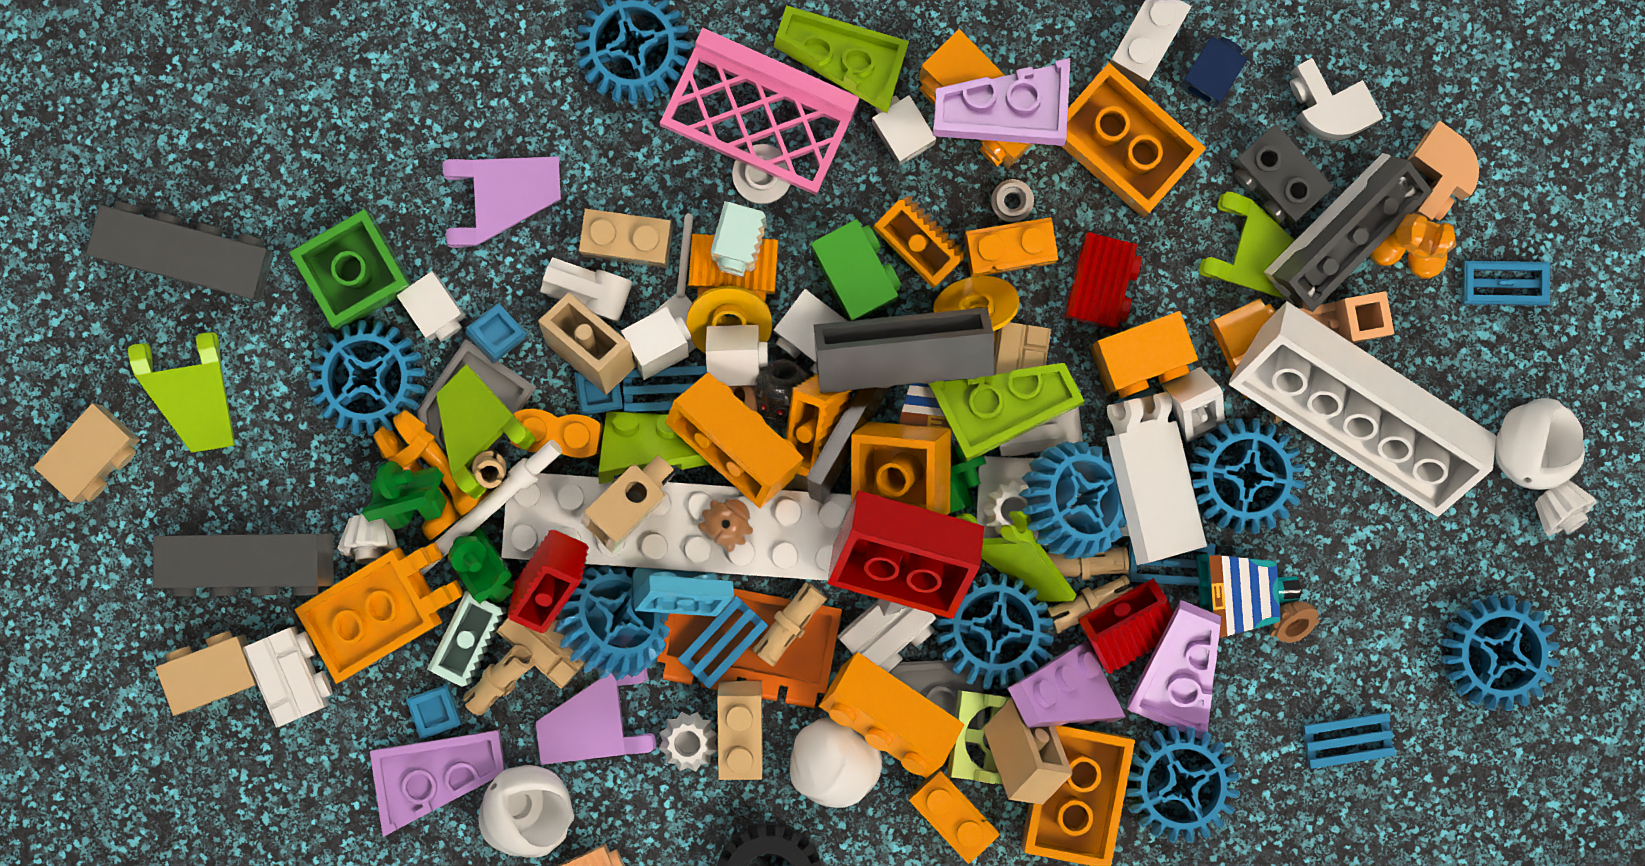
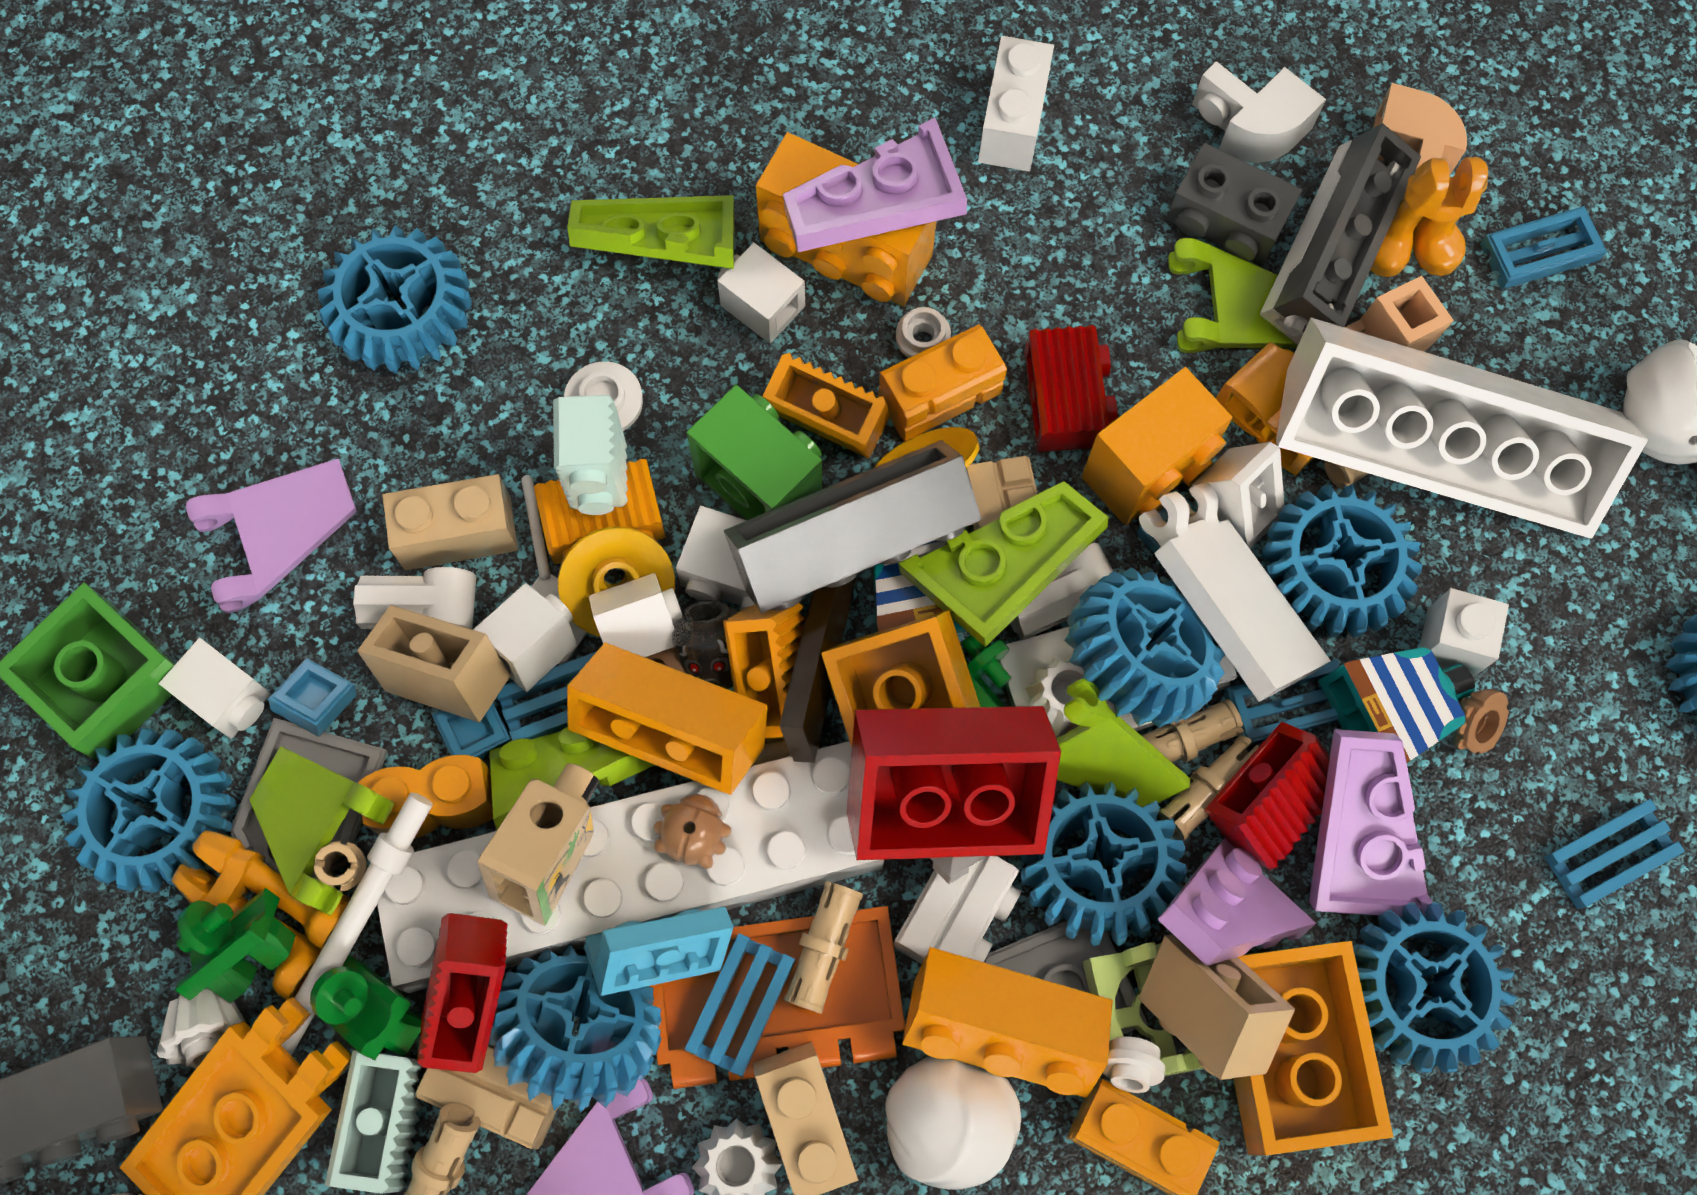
camera: 15 degrees left, 15 degrees down
(776, 79) = (583, 285): bright pink fence -> none
(962, 769) = (1134, 1064): none -> white plate
(1128, 141) = (1036, 217): light orange brick -> none
(1214, 70) = (1106, 119): dark blue brick -> none
(1308, 557) = (1465, 630): none -> white brick

